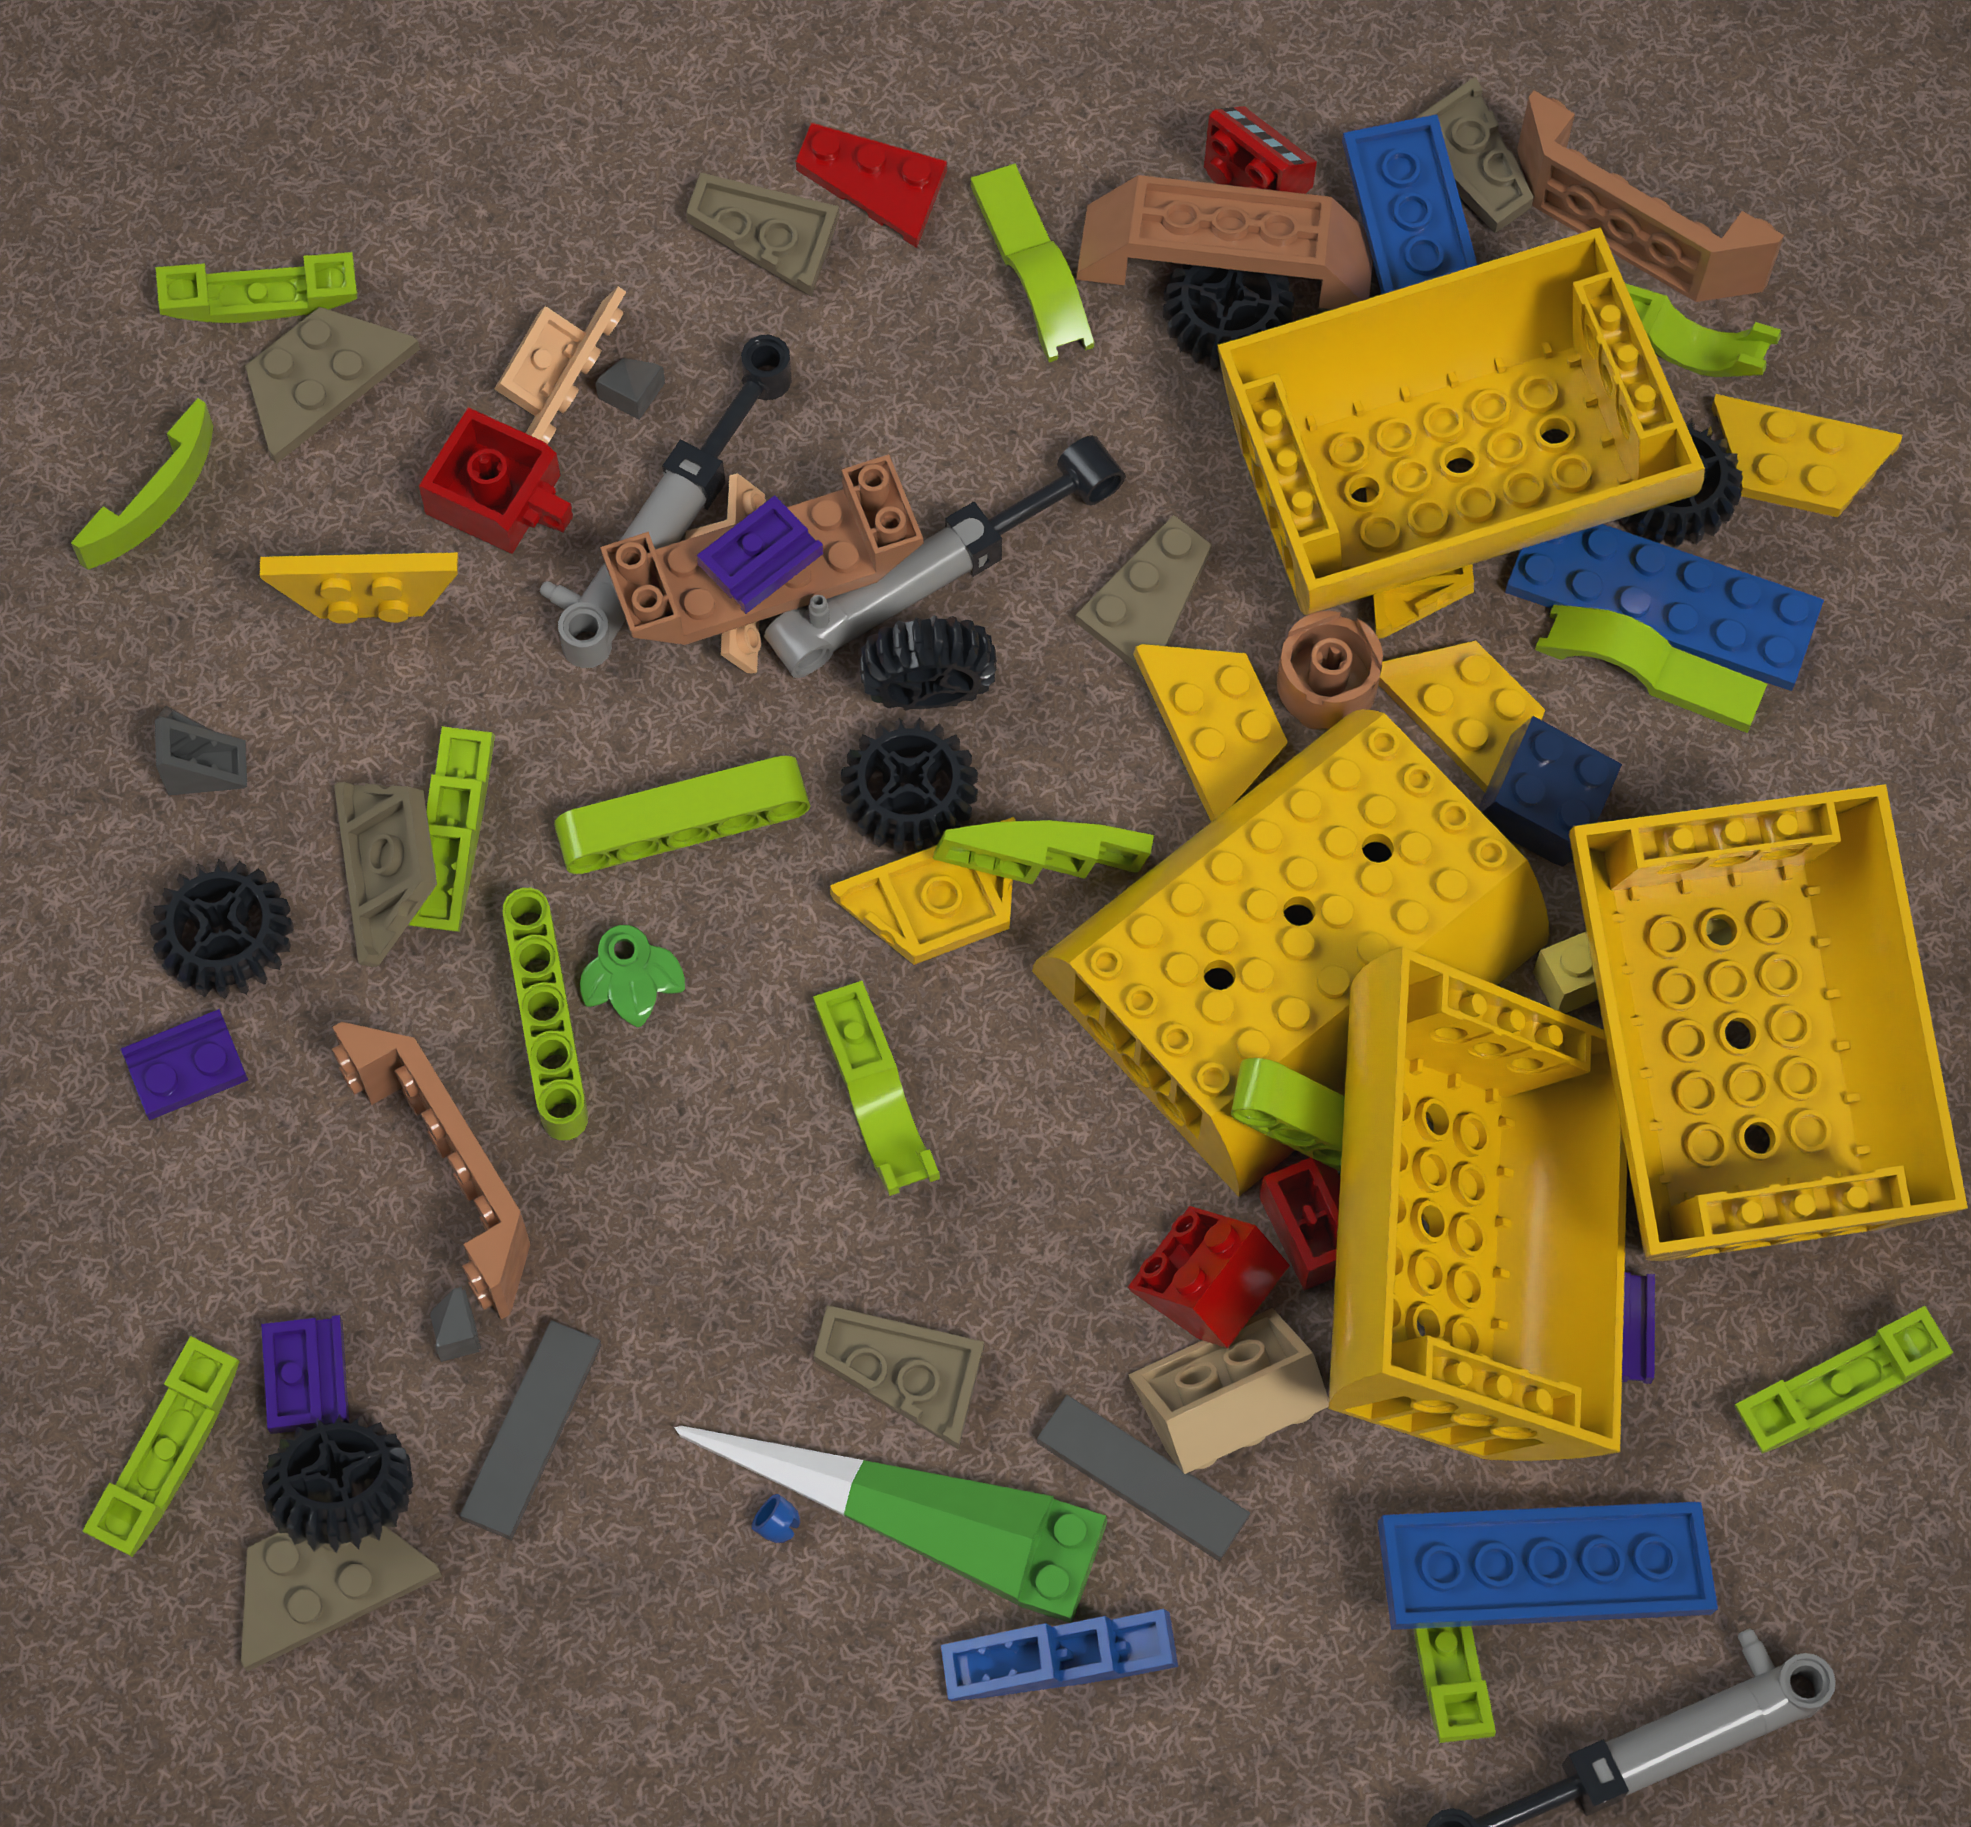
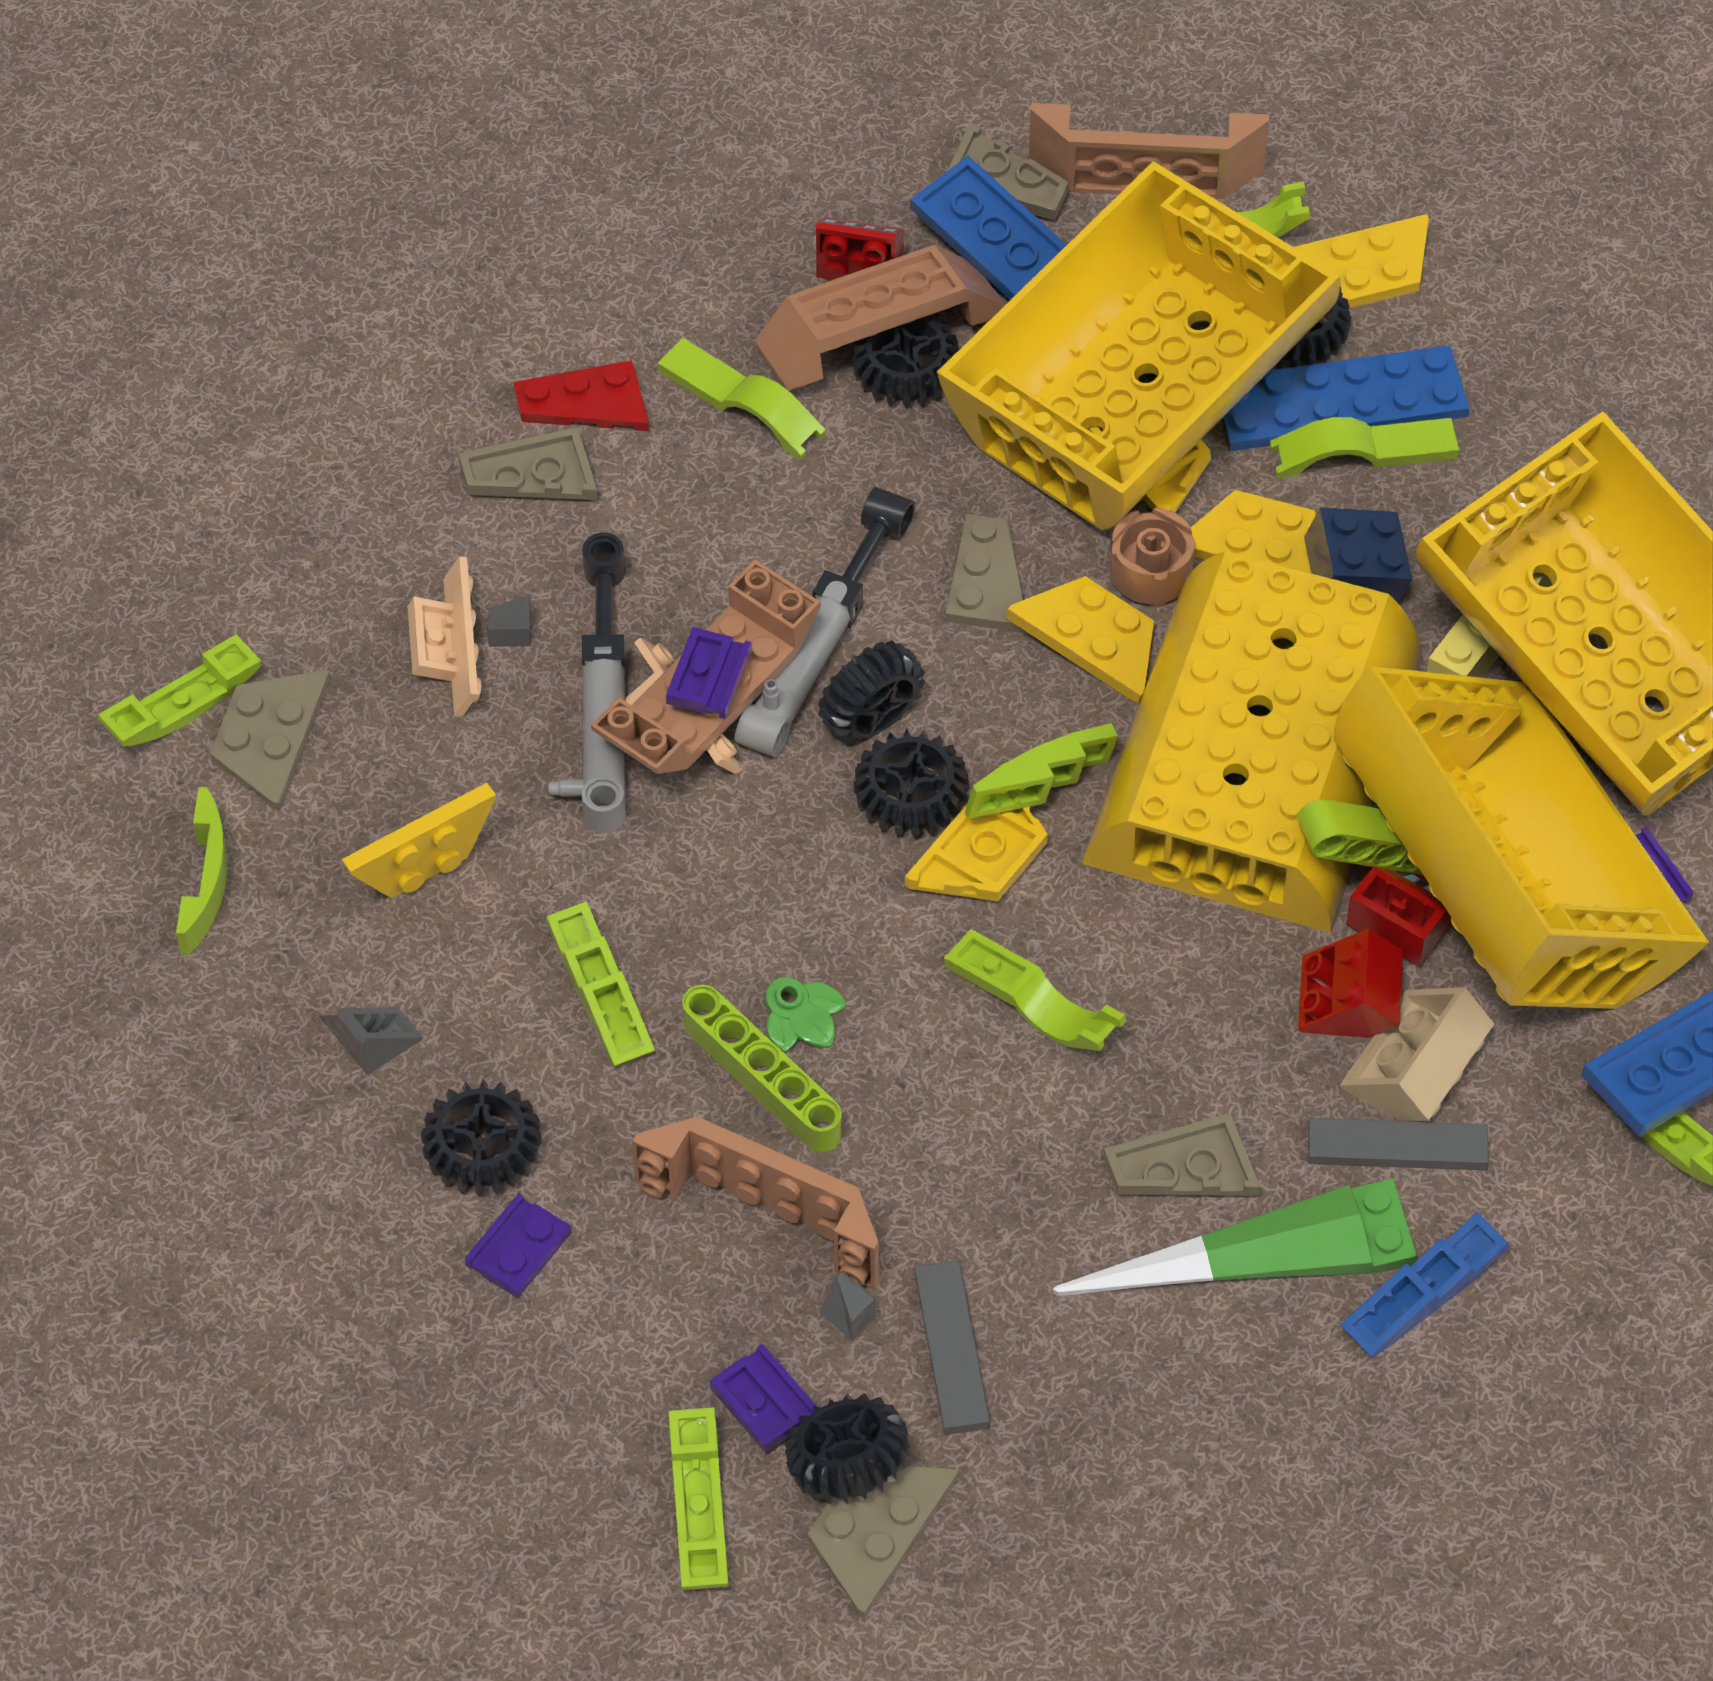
camera: 30 degrees left, 10 degrees down
(385, 862) = (571, 1026): dark tan wing -> none
(494, 483) = (465, 734): red hinge -> none
(681, 814) = (761, 887): lime beam -> none
(775, 1519) = (1168, 1307): blue hinge -> none

